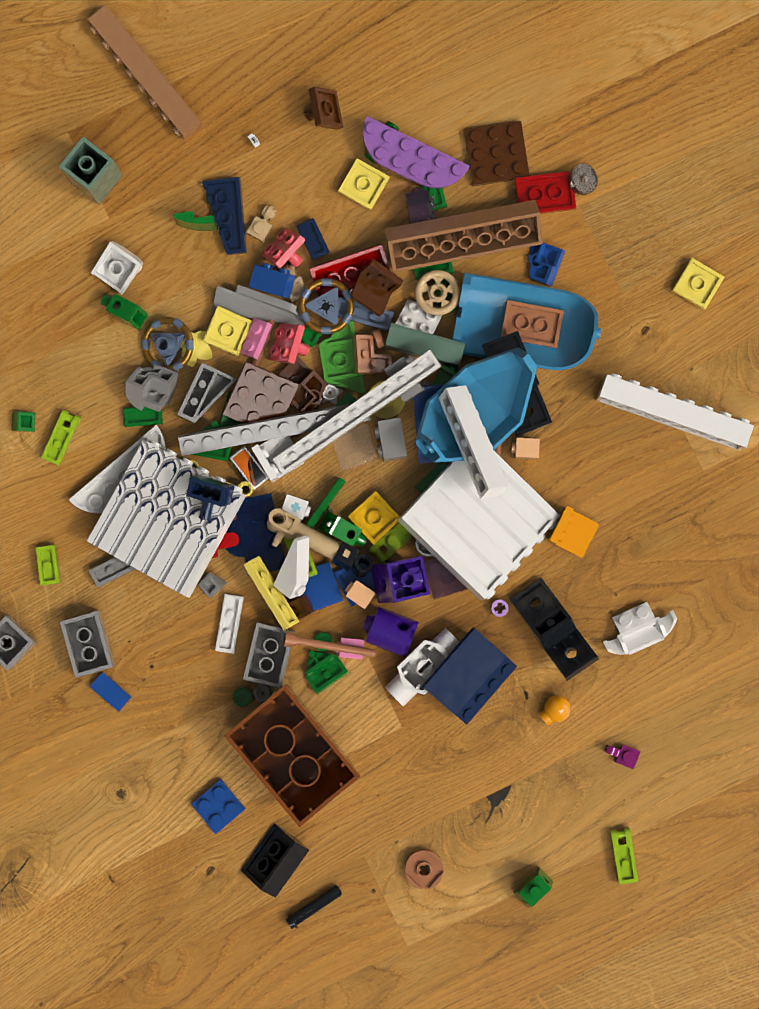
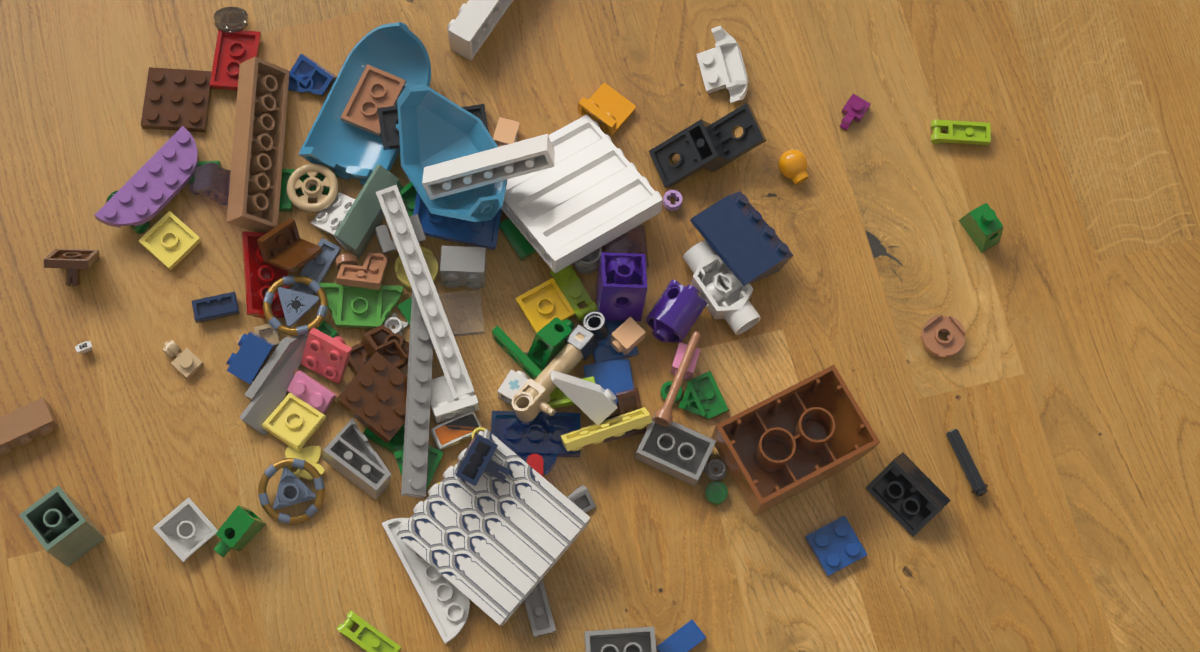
camera: 85 degrees left, 15 degrees down
(135, 418) = (367, 539): green tile -> none
(151, 387) = (336, 517): light grey brick -> none
(189, 221) = (157, 431): green slope -> none
(227, 206) = (153, 392): dark blue wing -> none
(229, 623) = (629, 490): white tile -> none
(284, 249) = (217, 337): coral plate -> none

